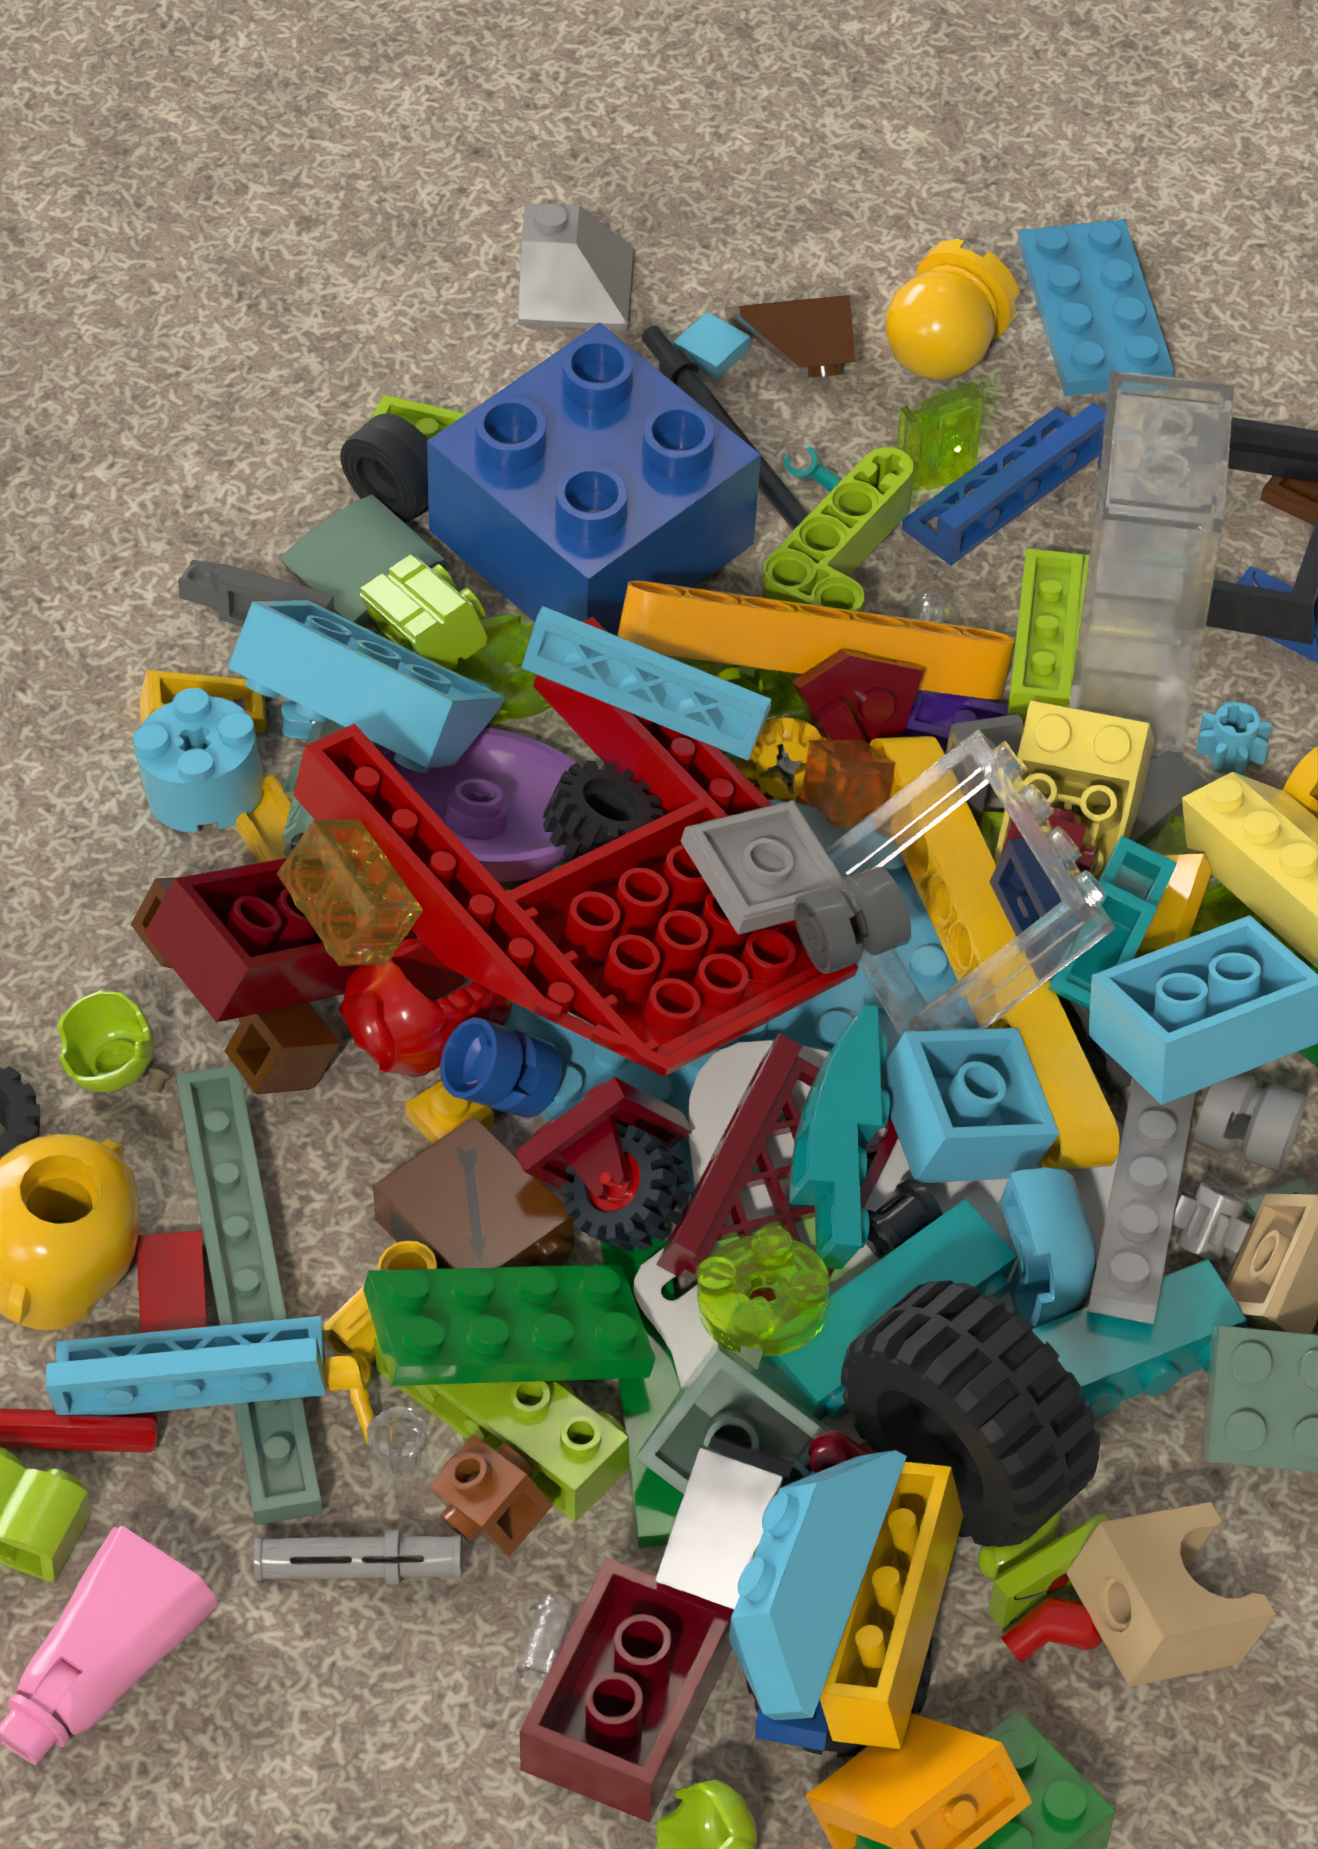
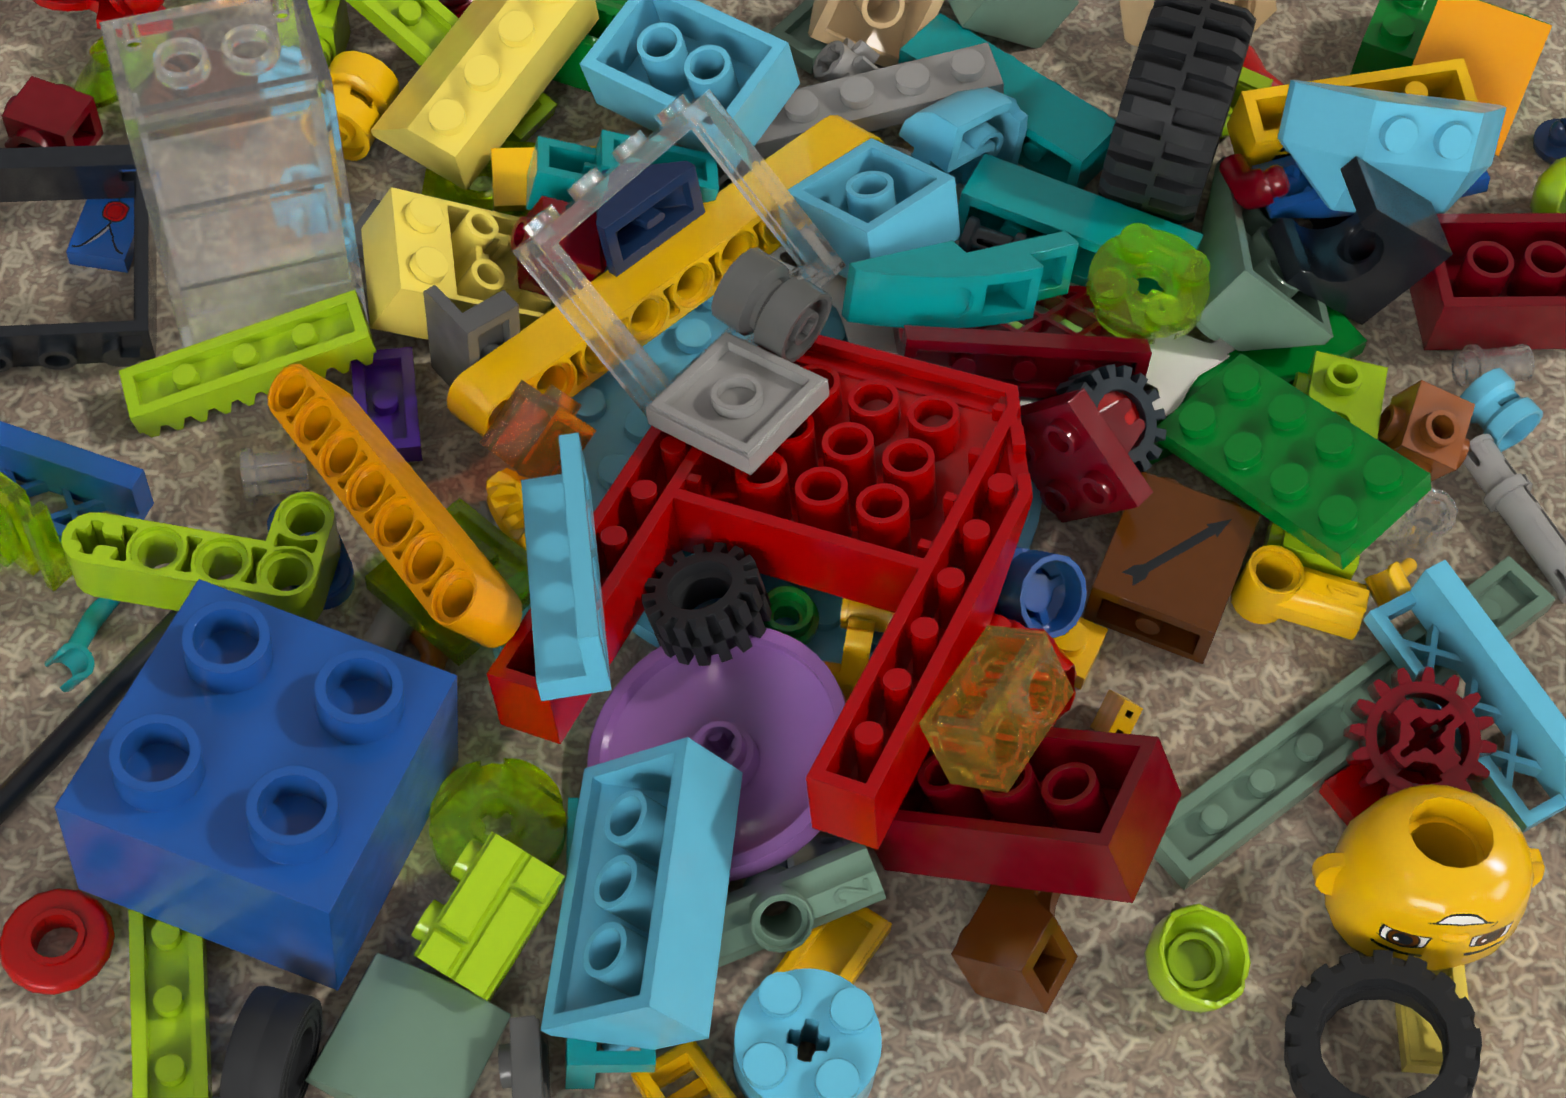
camera: 120 degrees left, 5 degrees up
(176, 1281) = (1404, 718): none -> dark red gear
(340, 1076) = (1116, 714): none -> yellow piece
(503, 1602) = (1501, 409): none -> medium azure wheel
(859, 696) = (431, 453): dark red plate -> none

